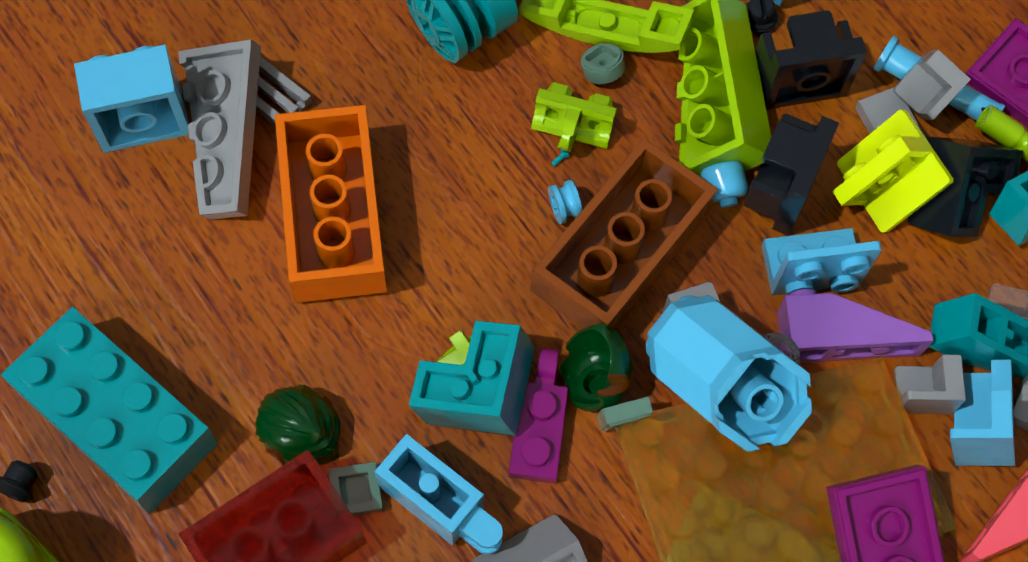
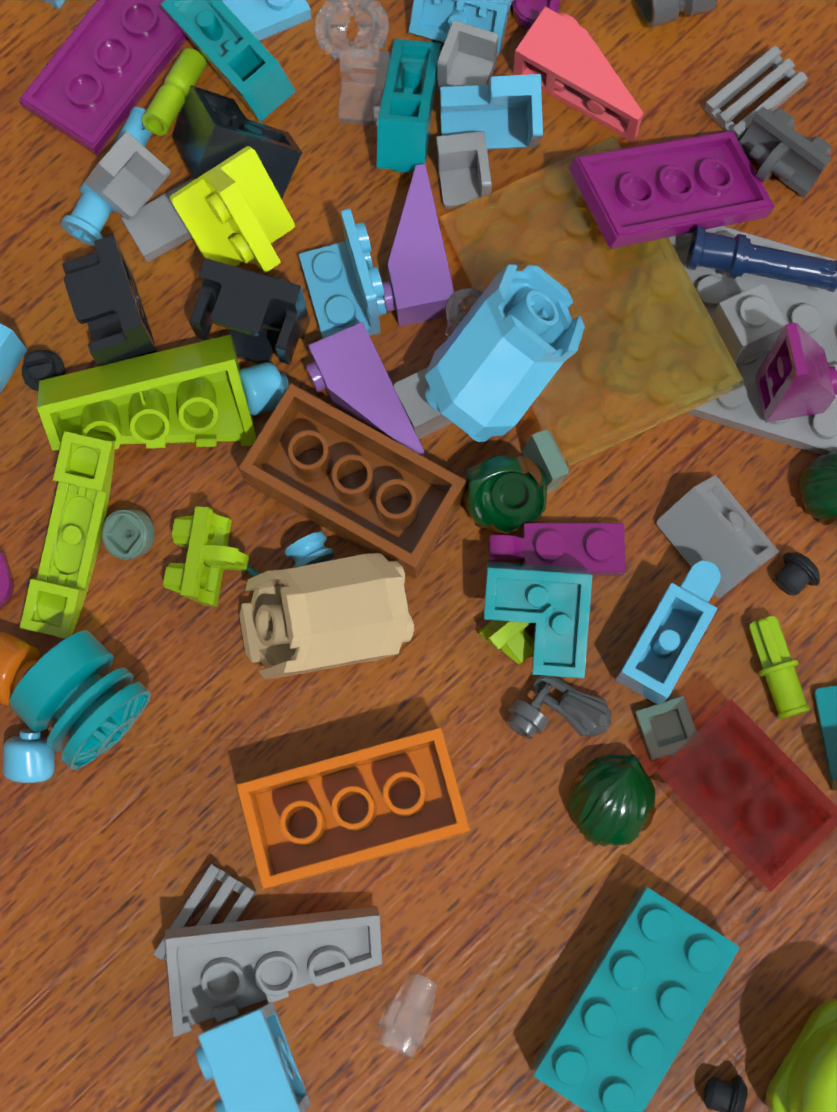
camera: 90 degrees left, 10 degrees up
(150, 228) = (407, 1017): none -> clear cone
(383, 414) = (584, 712): none -> dark grey piece
(502, 201) = (326, 615): none -> tan brick
(728, 256) = (359, 384): none -> medium lavender slope

